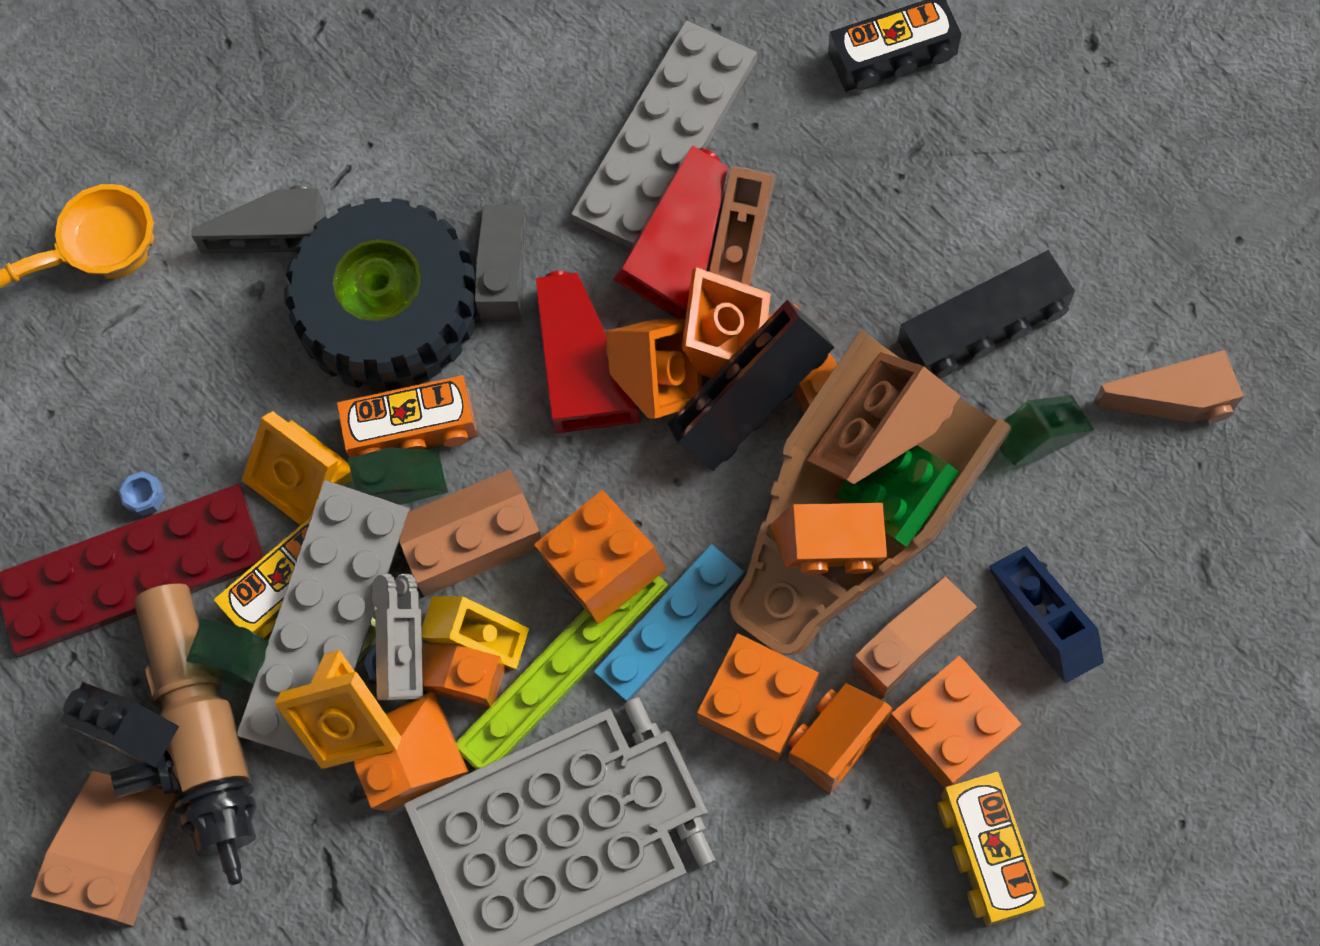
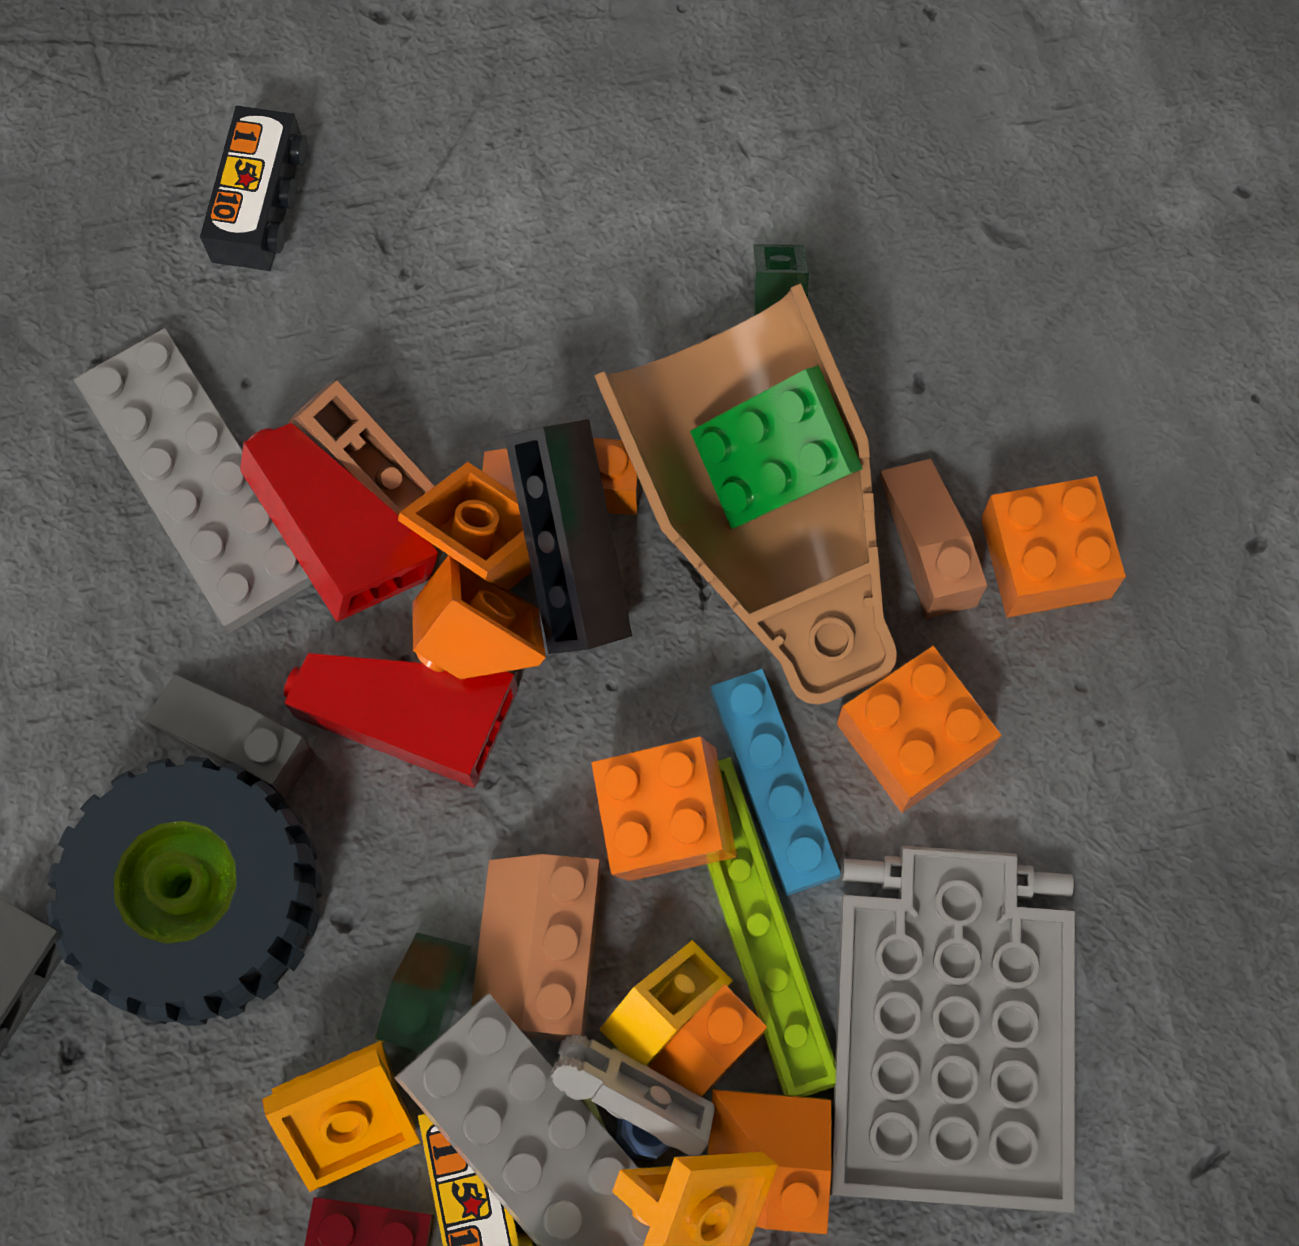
camera: 65 degrees left, 0 degrees up
(409, 418) = (361, 945): brick -> none
(831, 537) = (809, 540): orange slope -> none
(838, 736) = (1011, 663): orange slope -> none
(883, 418) = (700, 418): nougat slope -> none
(987, 315) = (622, 270): black brick -> none
(990, 850) = (1205, 585): brick -> none
(1049, 615) = (981, 392): dark blue slope -> none
(1180, 391) = (817, 140): nougat slope -> none

